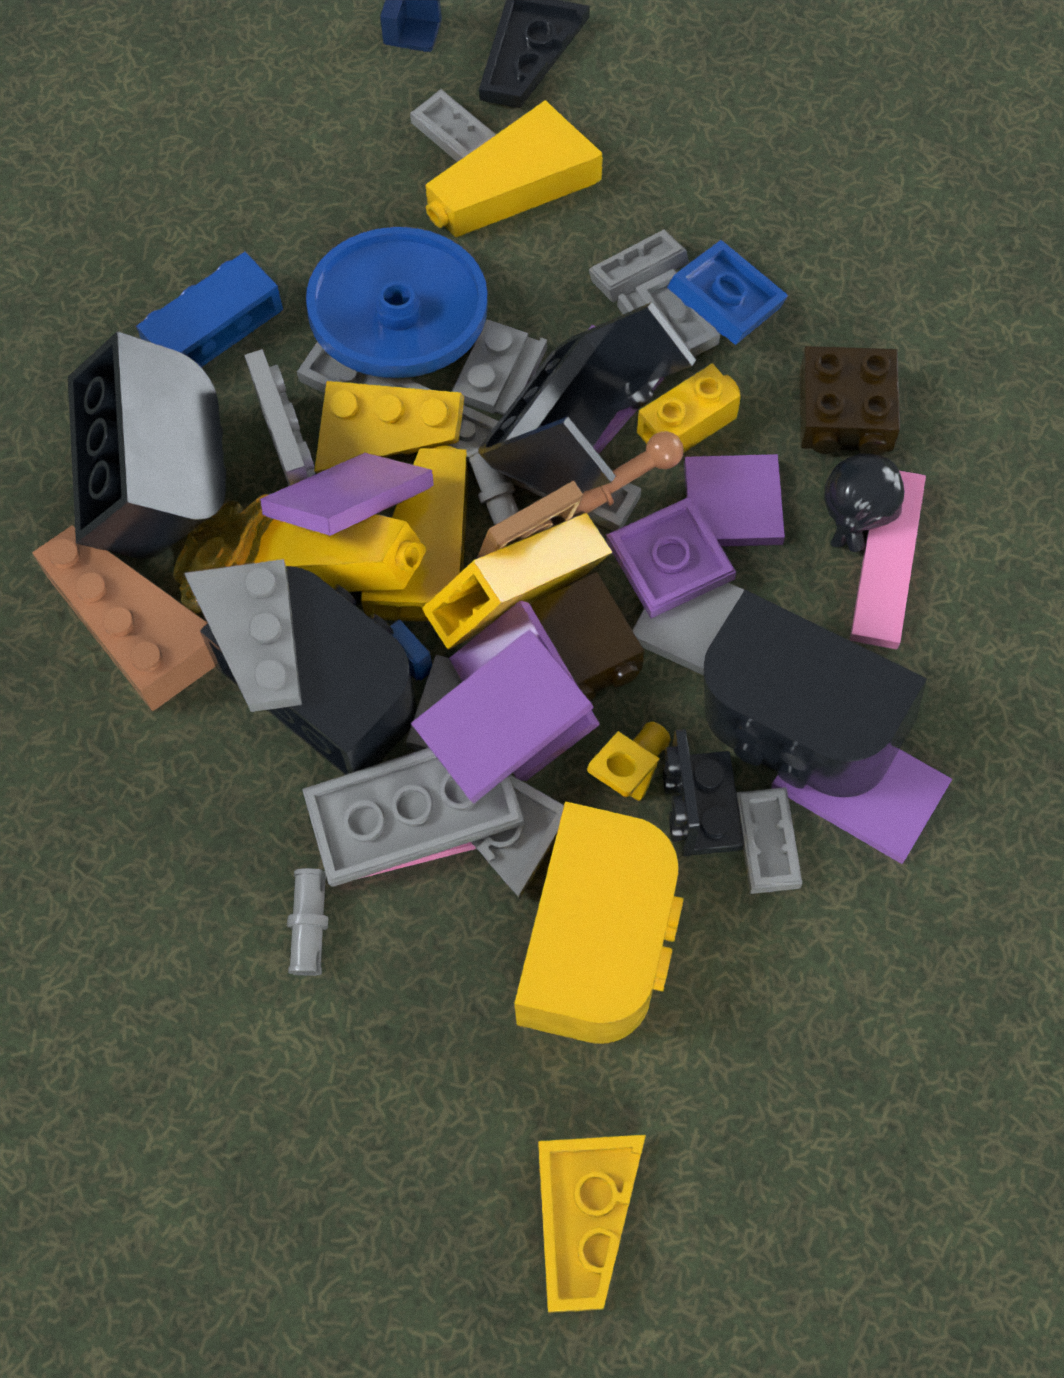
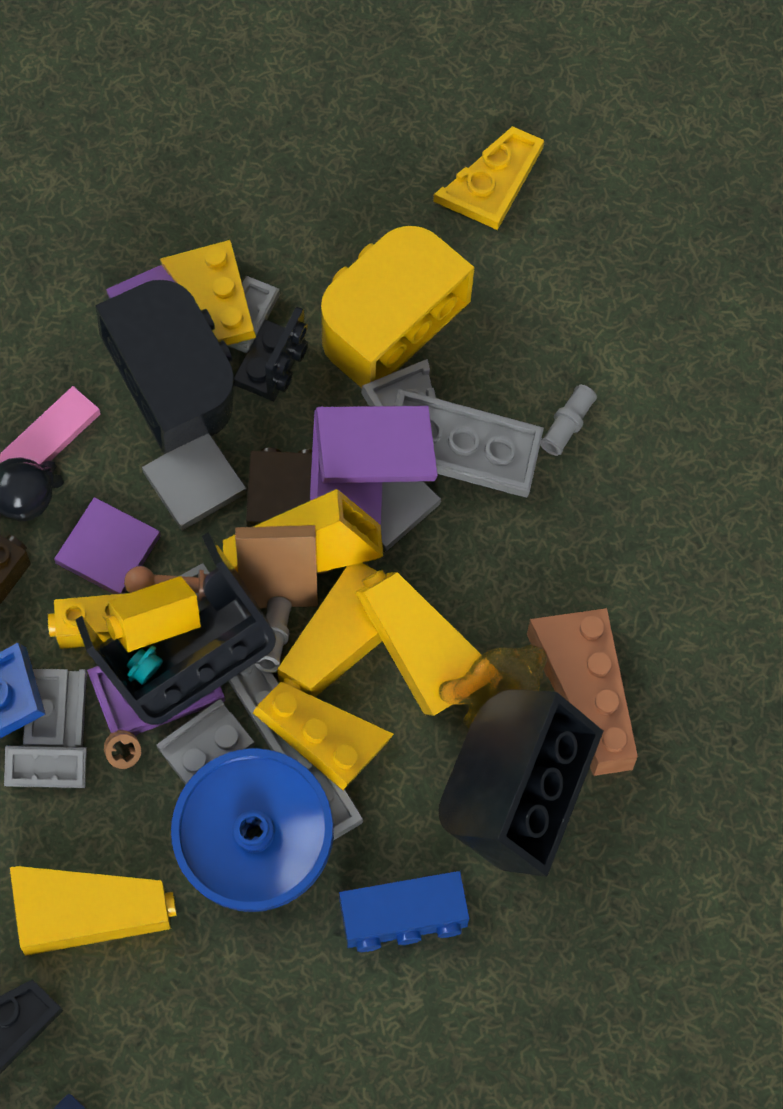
camera: 155 degrees left, 0 degrees up
(254, 629) = (510, 579): light grey wing -> none
(280, 418) = (402, 757): light grey plate -> none
(347, 493) = (388, 658): medium lavender tile -> none
(350, 676) = (476, 561): black brick -> none
(417, 655) = (403, 555): blue tile -> none
(450, 125) = (104, 985): light grey plate -> none
(576, 316) = (119, 761): none -> medium nougat bush
(601, 374) = (143, 665): none -> teal plate
(625, 409) = (153, 614): none -> yellow brick
(629, 763) = (303, 397): yellow bracket -> none
(670, 557) = (178, 519): medium lavender tile -> none
(822, 835) = (216, 285): none -> yellow wing

